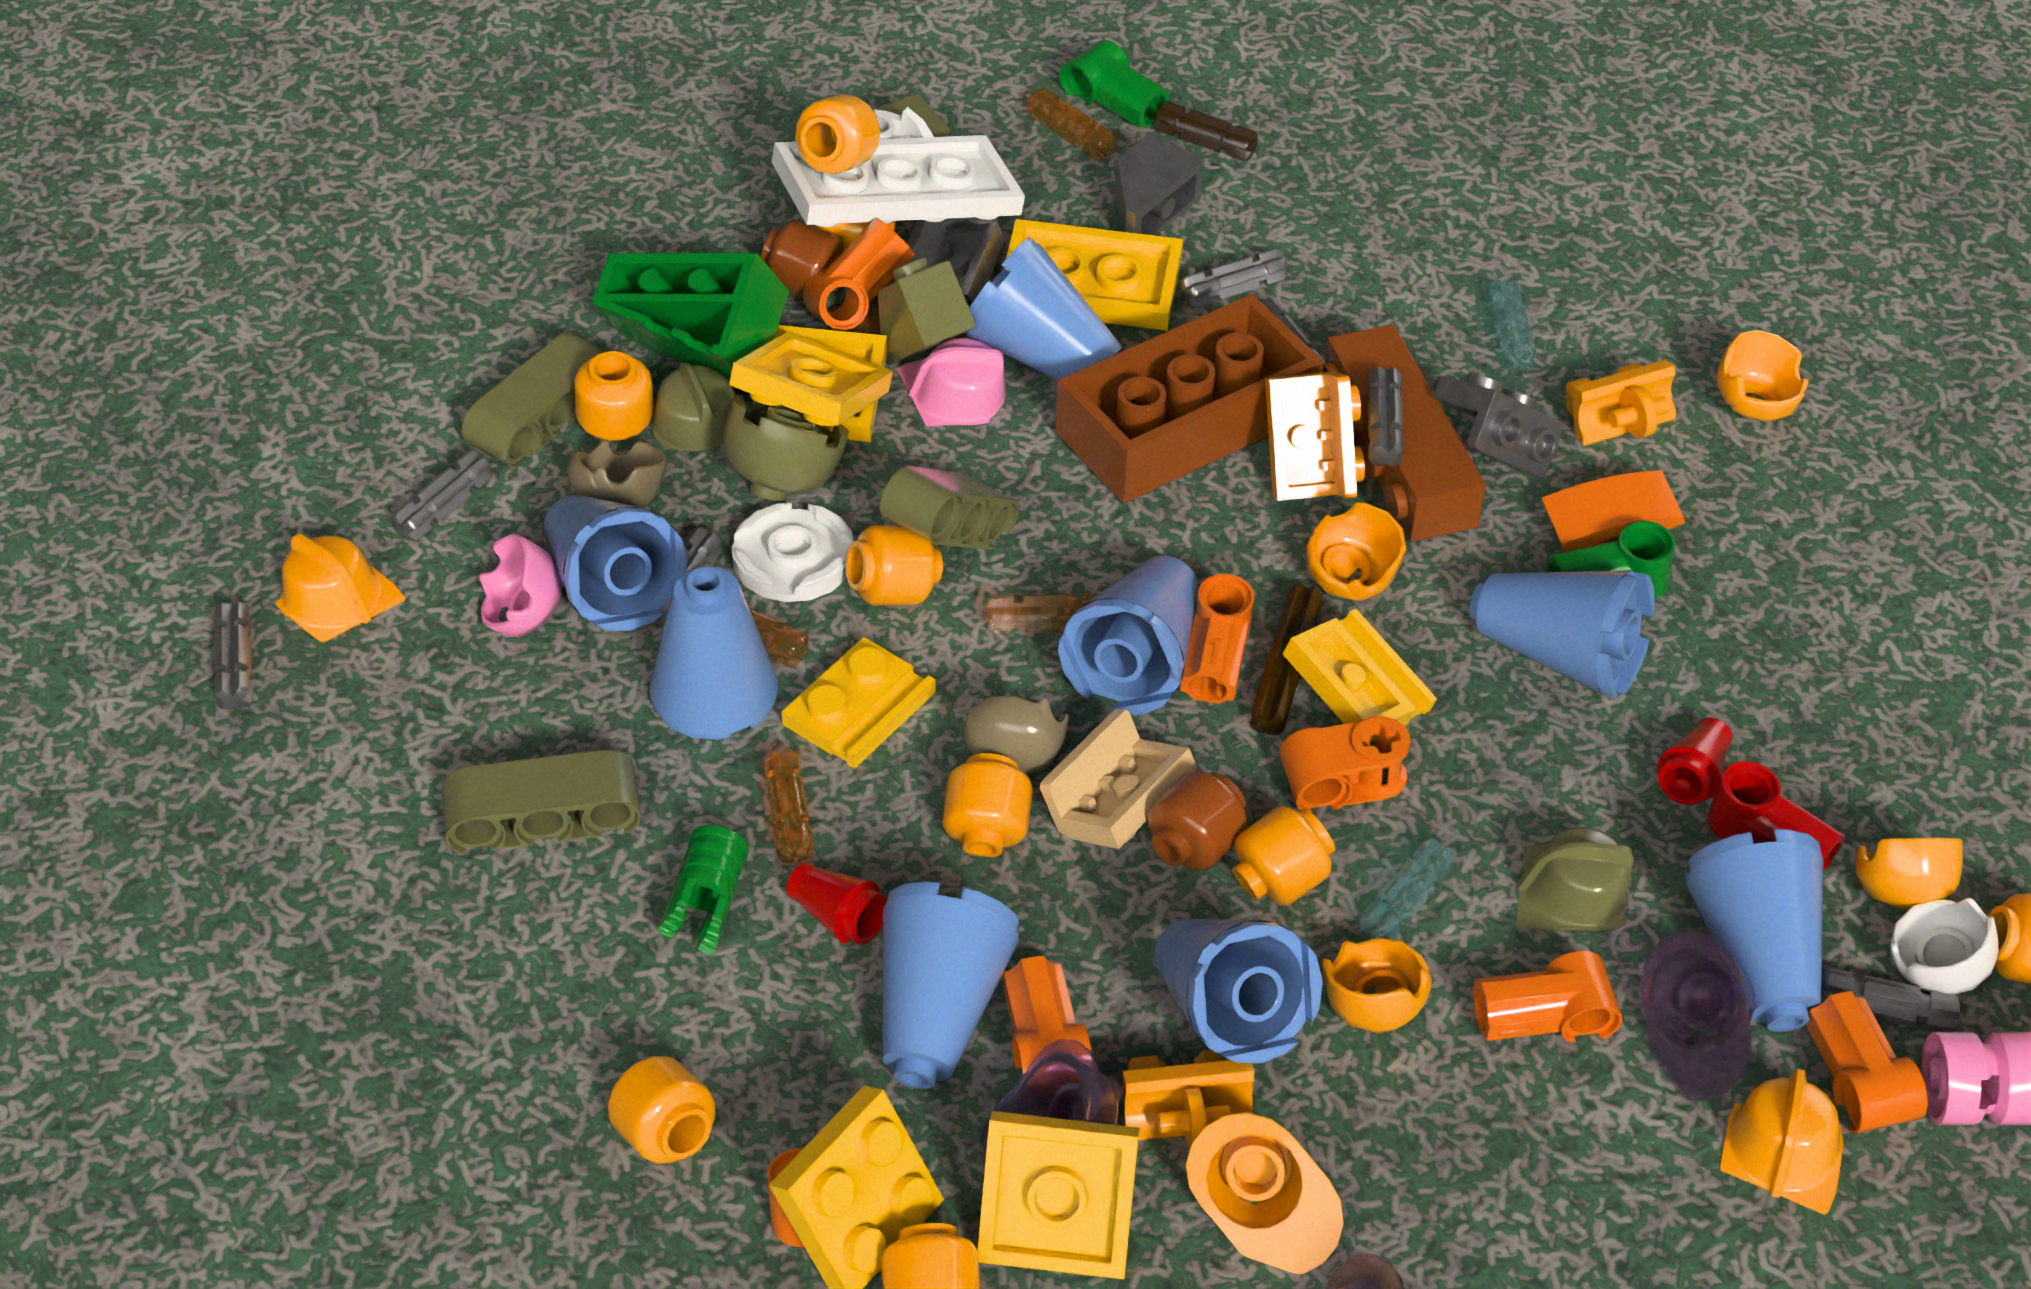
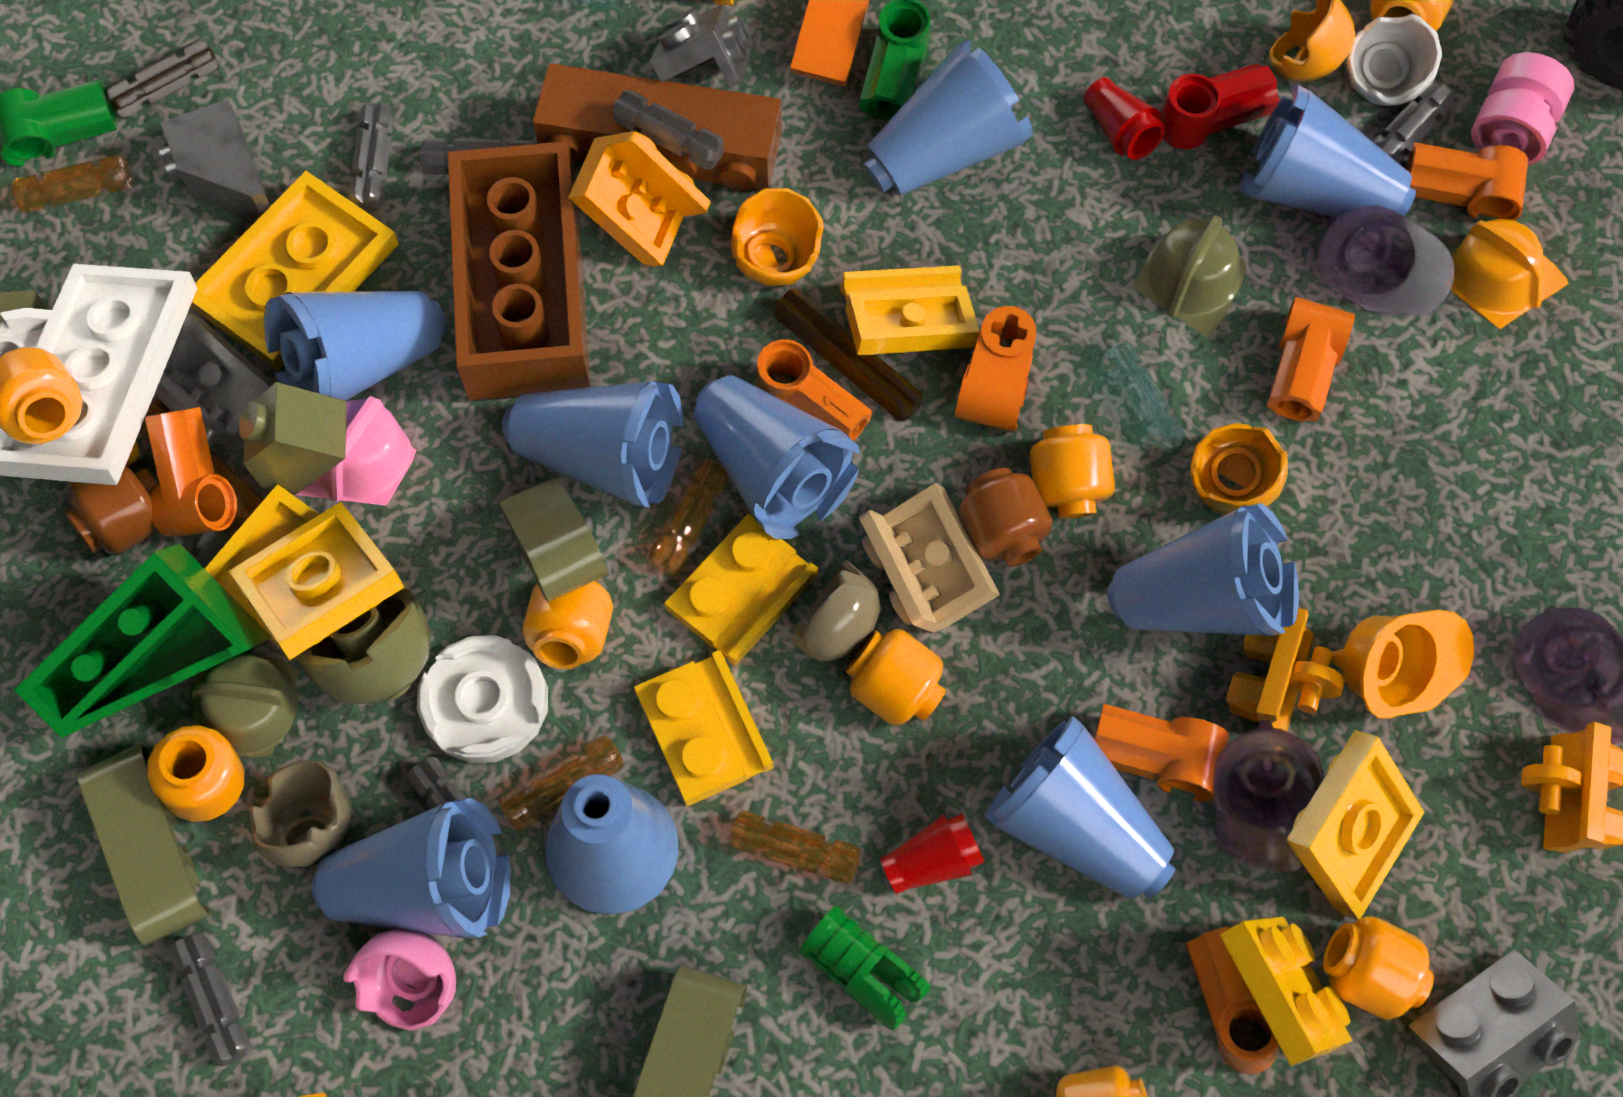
camera: 60 degrees left, 20 degrees up
(999, 665) = (741, 589): none -> yellow plate
(1076, 522) = (602, 436): none -> medium blue cone

